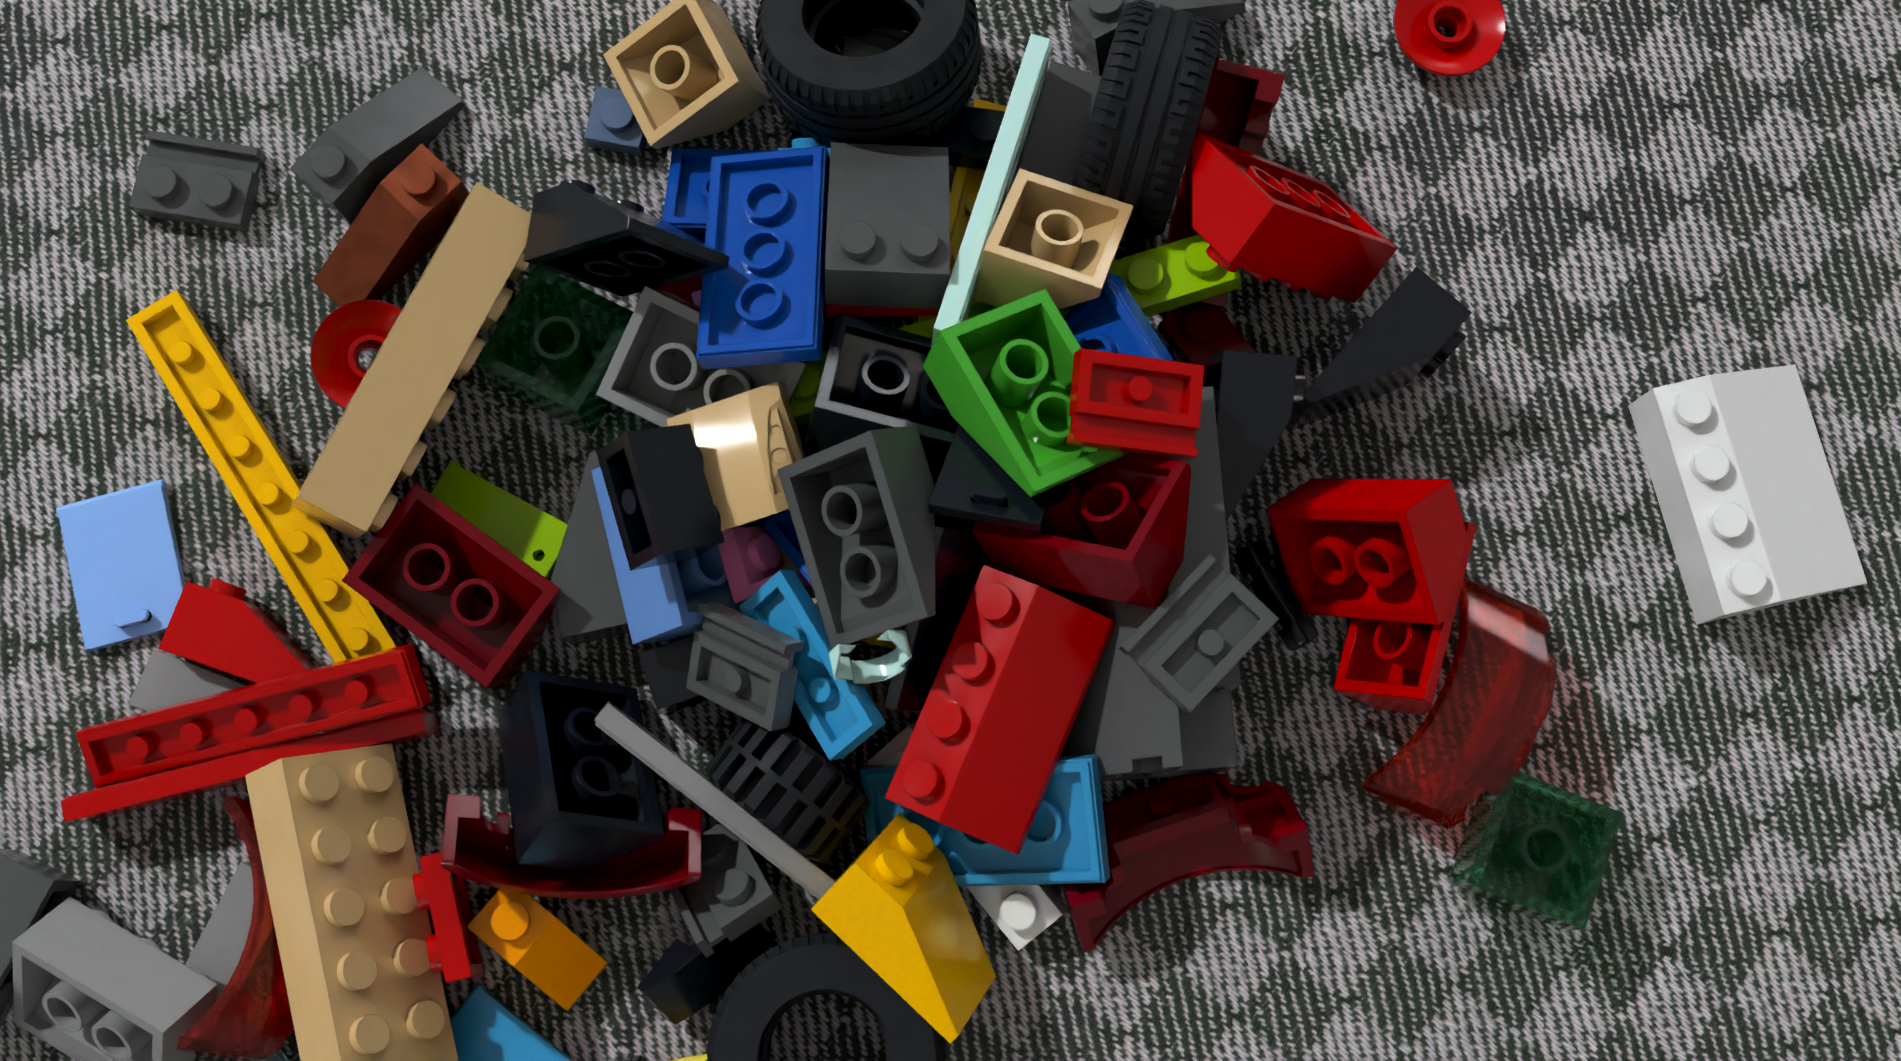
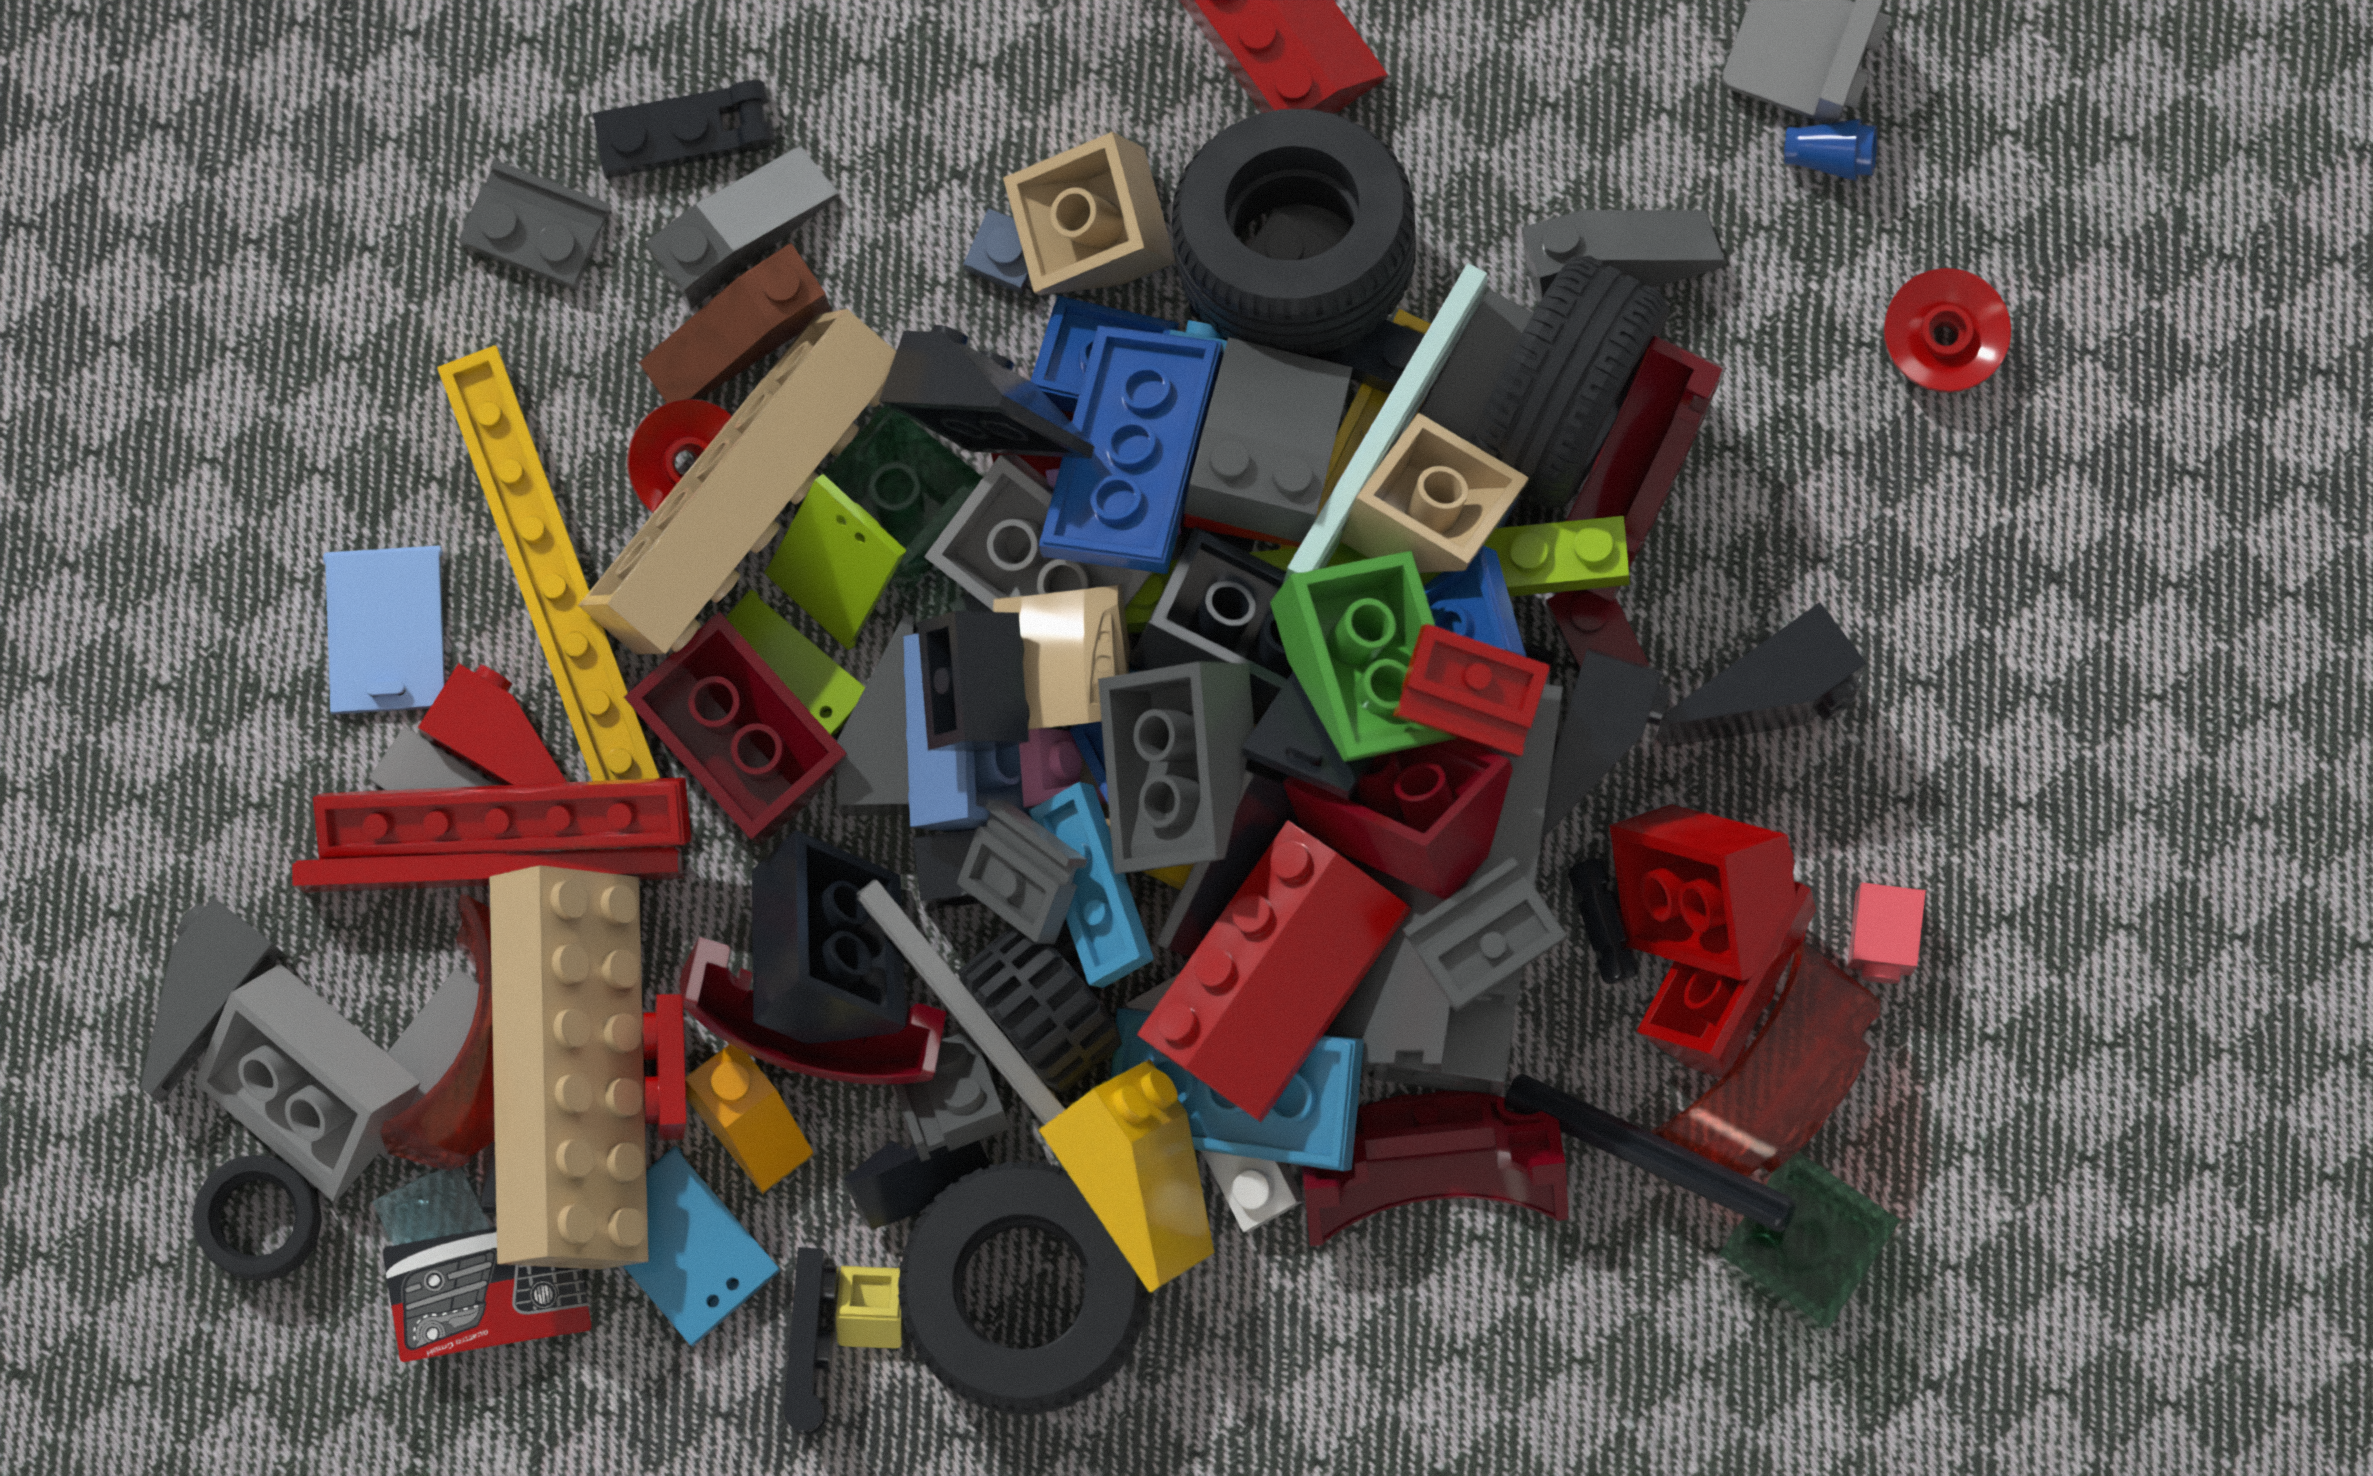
camera: 20 degrees right, 0 degrees up
(314, 74) = (682, 130): none -> black plate
(517, 415) = (835, 561): none -> lime container
(874, 669) = (1152, 903): light aqua piece -> none
(1281, 224) = (1691, 524): red slope -> none
(1385, 800) = (1653, 1153): none -> black axle
(1529, 551) = (1886, 932): none -> coral brick
(1745, 491) = (2147, 917): white slope -> none

